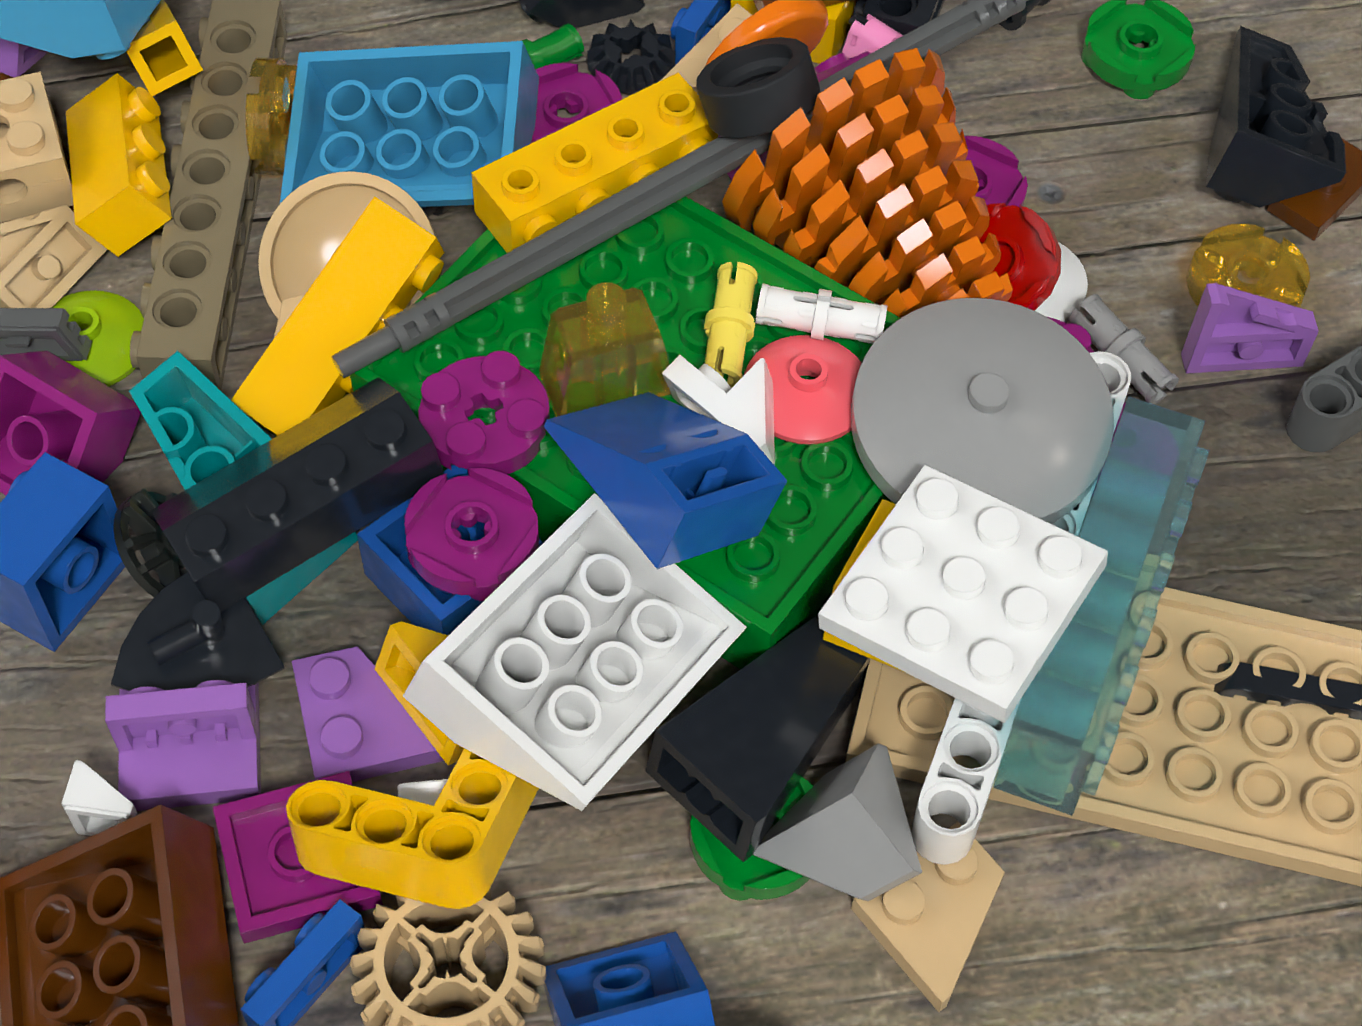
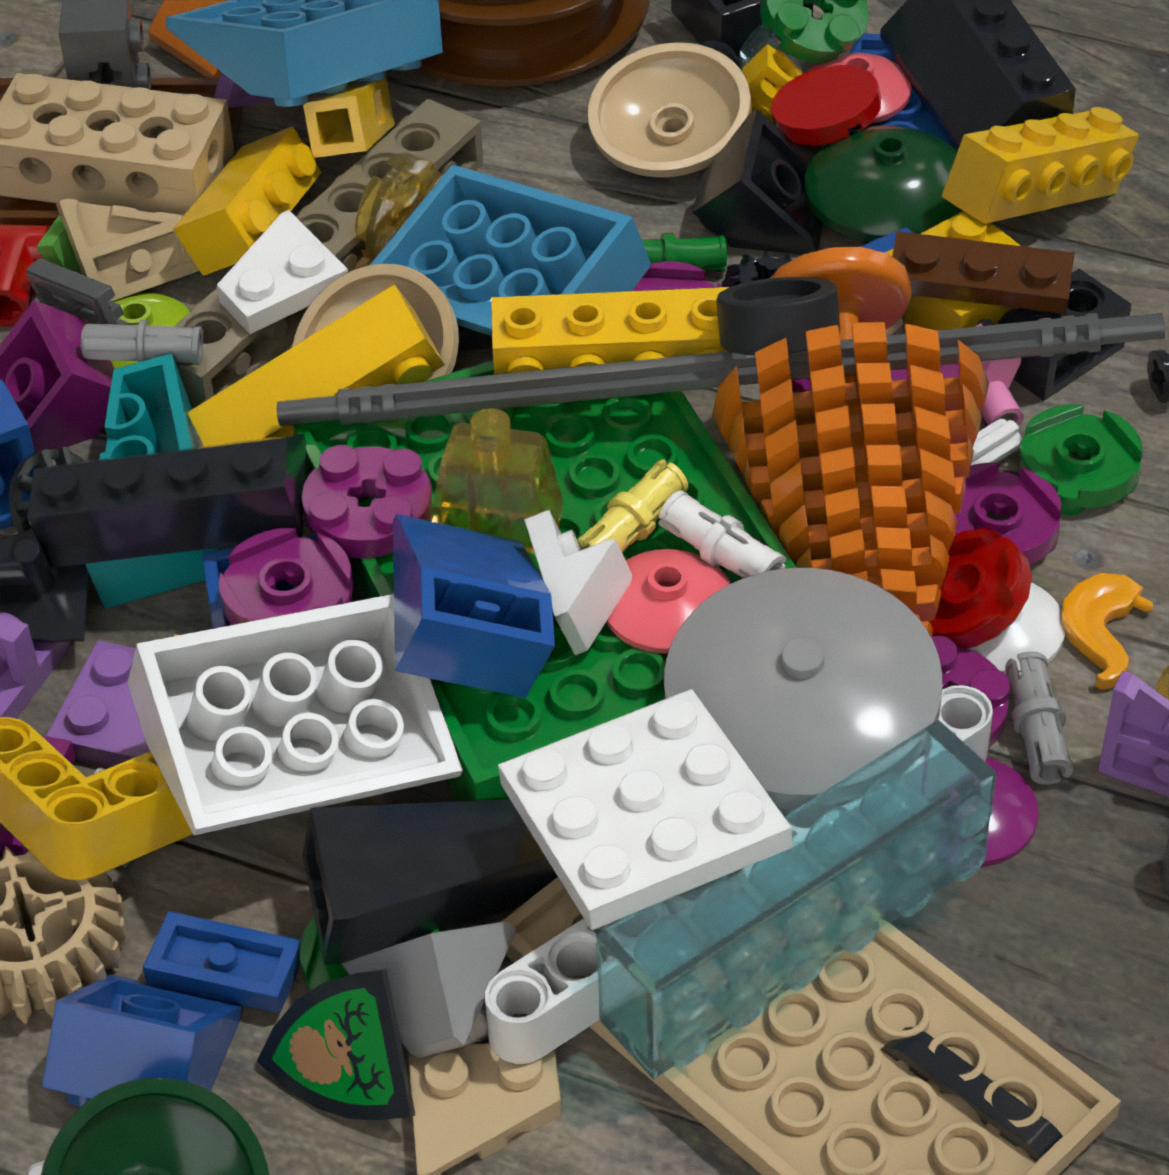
camera: 35 degrees right, 10 degrees down
(136, 352) = (141, 342): none -> light grey axle
(213, 227) = (278, 275): none -> white wing
(638, 904) = (223, 962): none -> blue plate
(812, 929) = (343, 1050): none -> shield
(1009, 83) = (1082, 483): none -> green plate
(1086, 238) = (1087, 612): none -> light orange piece

